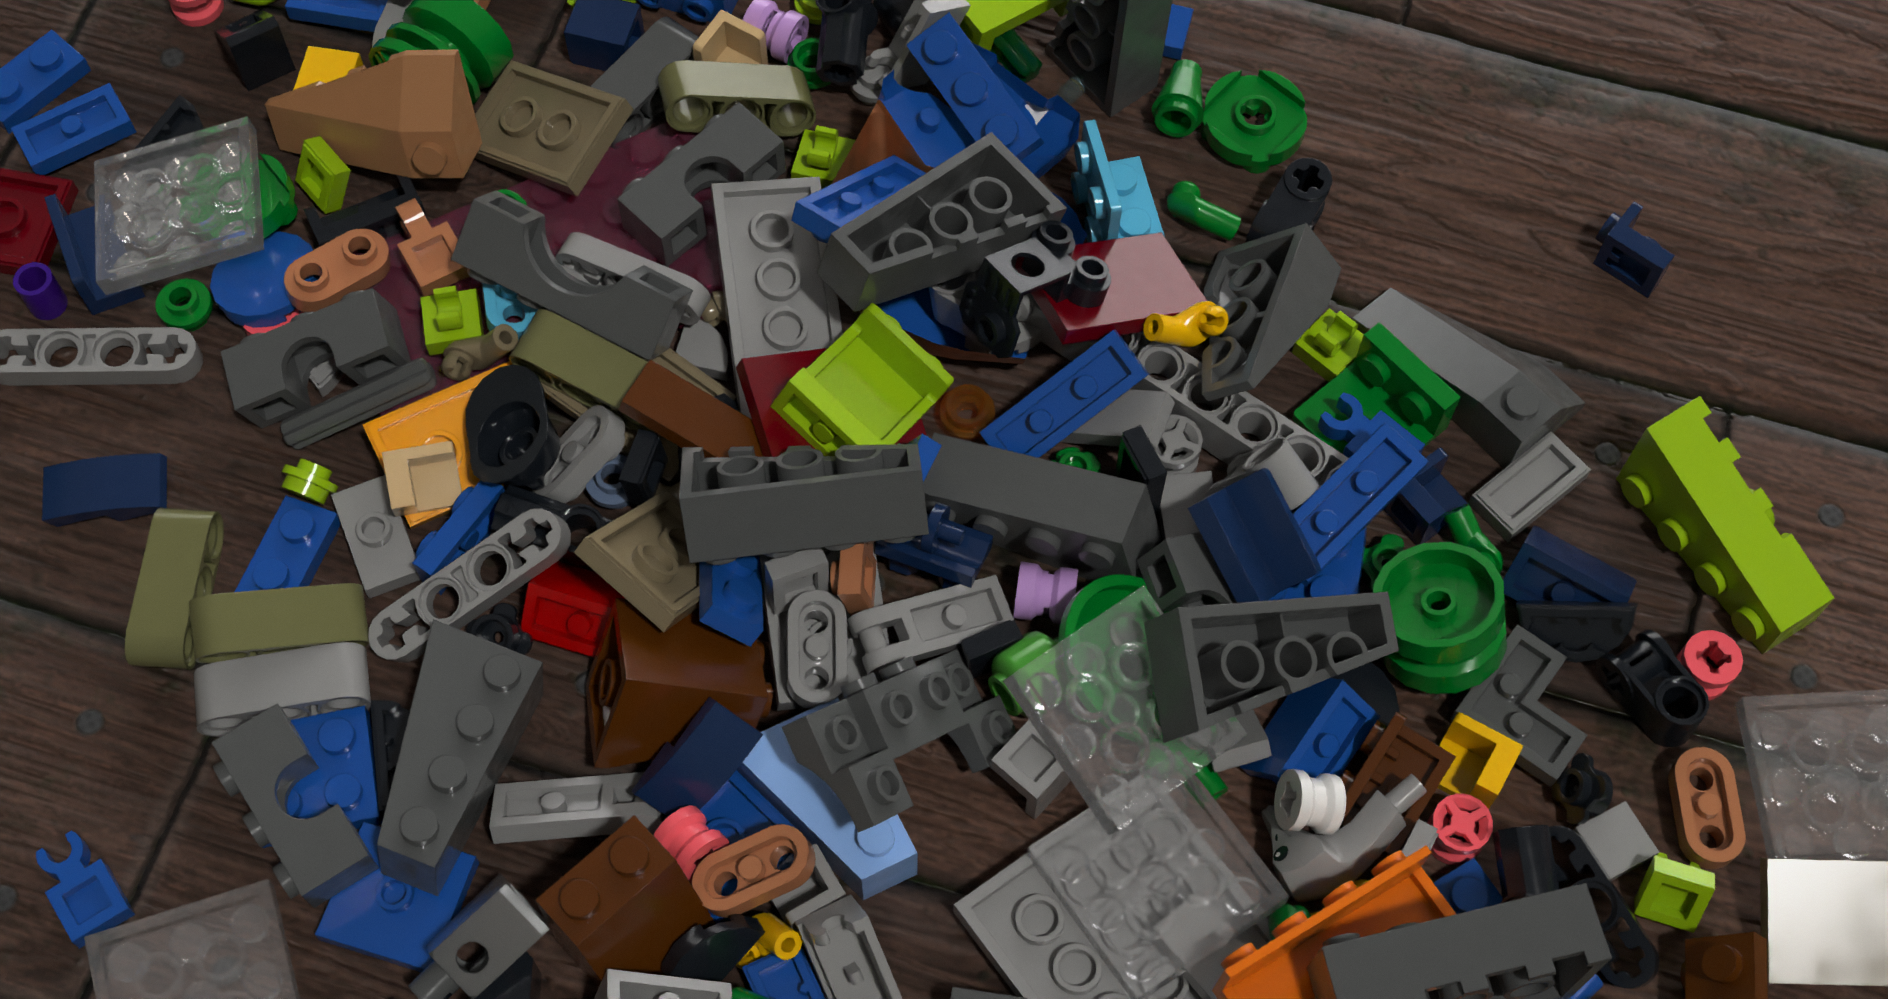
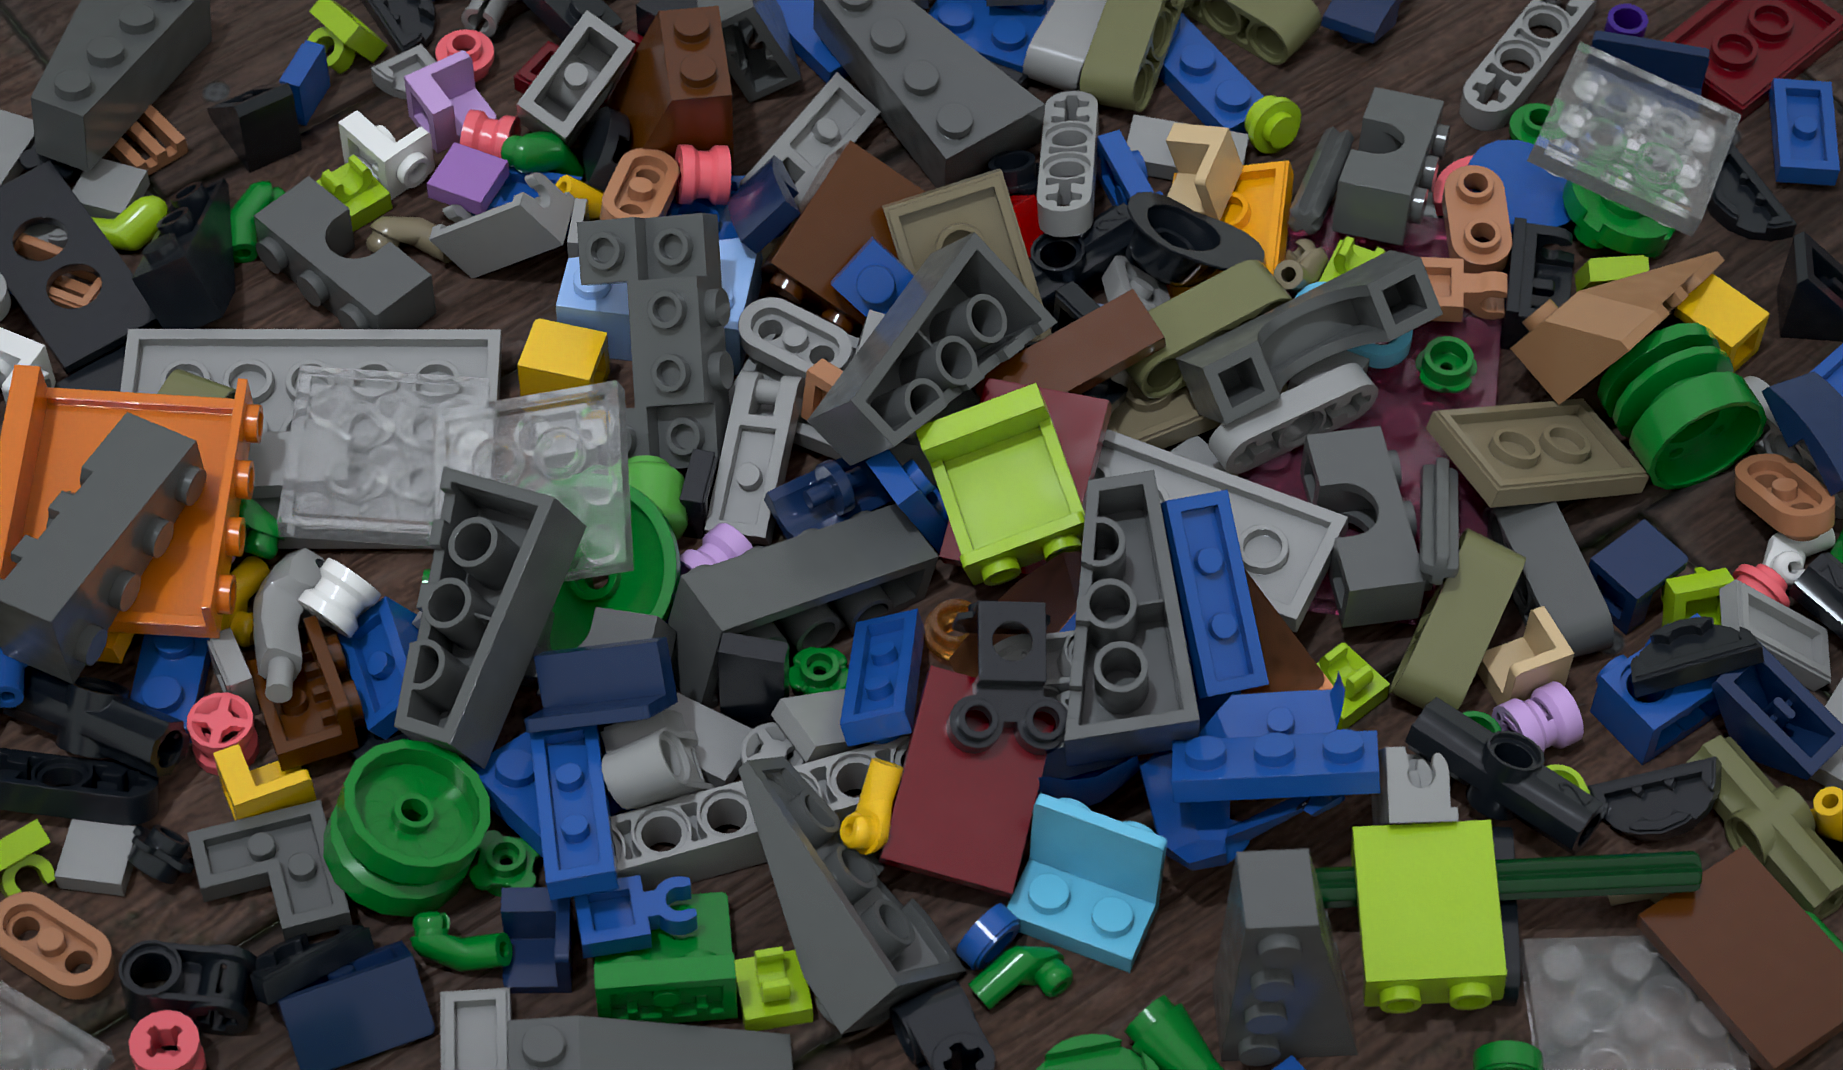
camera: 125 degrees right, 10 degrees down
(671, 129) = (1439, 521): none -> dark grey axle
(949, 828) = (562, 358): none -> yellow panel
(1195, 239) = (988, 937): none -> blue tile

